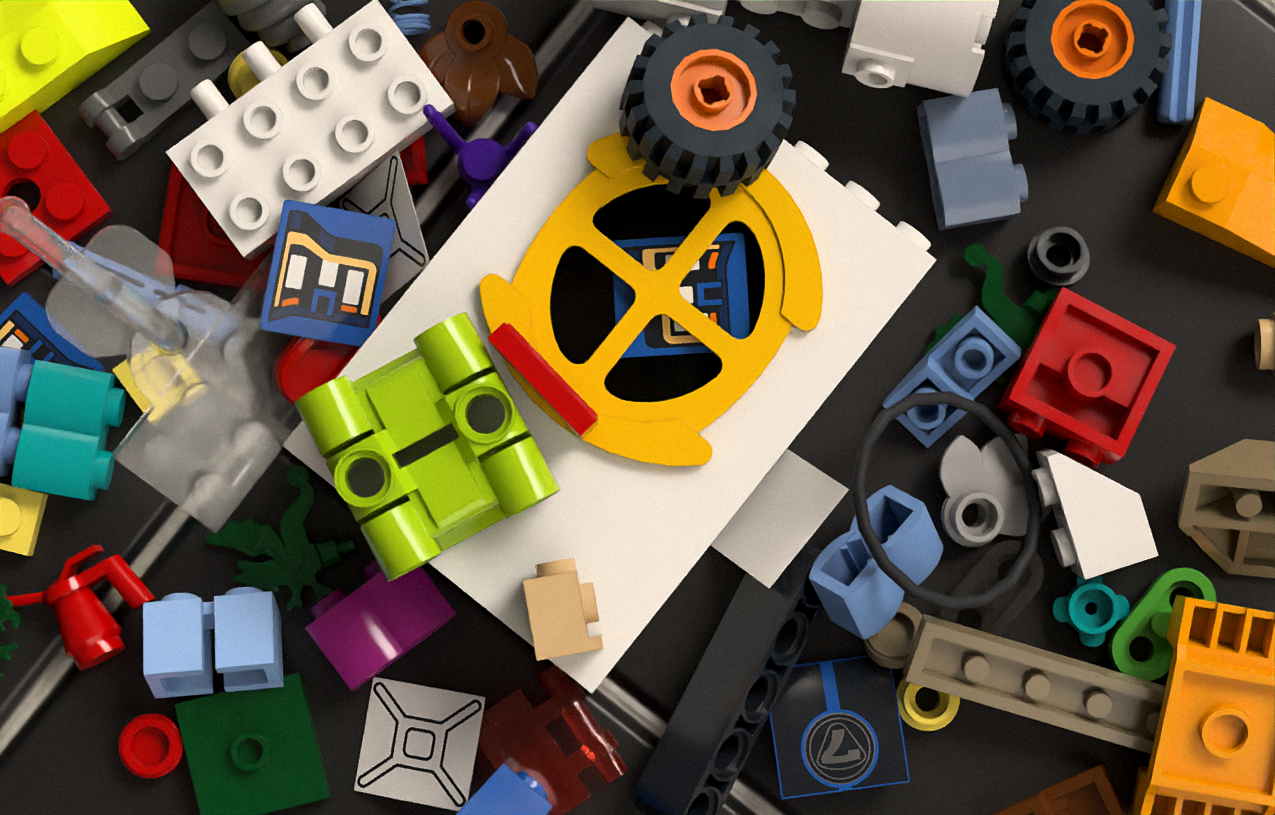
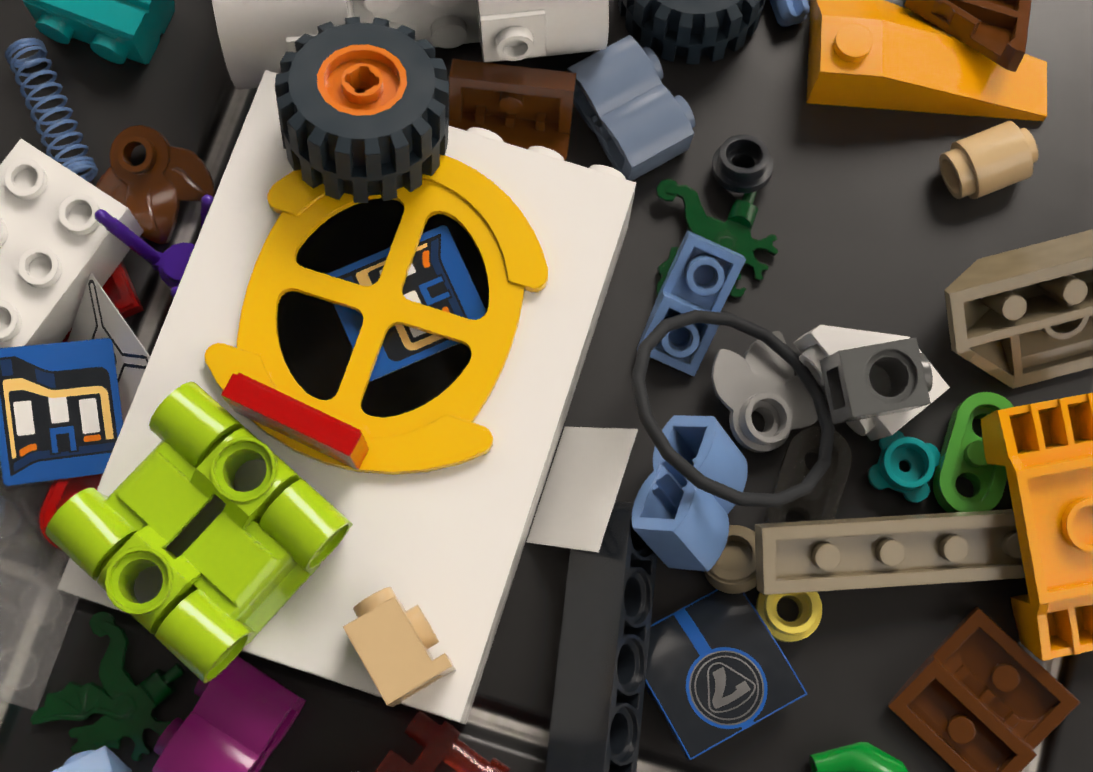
camera: 20 degrees left, 10 degrees down
(853, 125) = (514, 102): none -> reddish brown bracket
(1058, 522) = (849, 385): none -> dark grey brick
(1085, 380) = (813, 258): red plate -> none

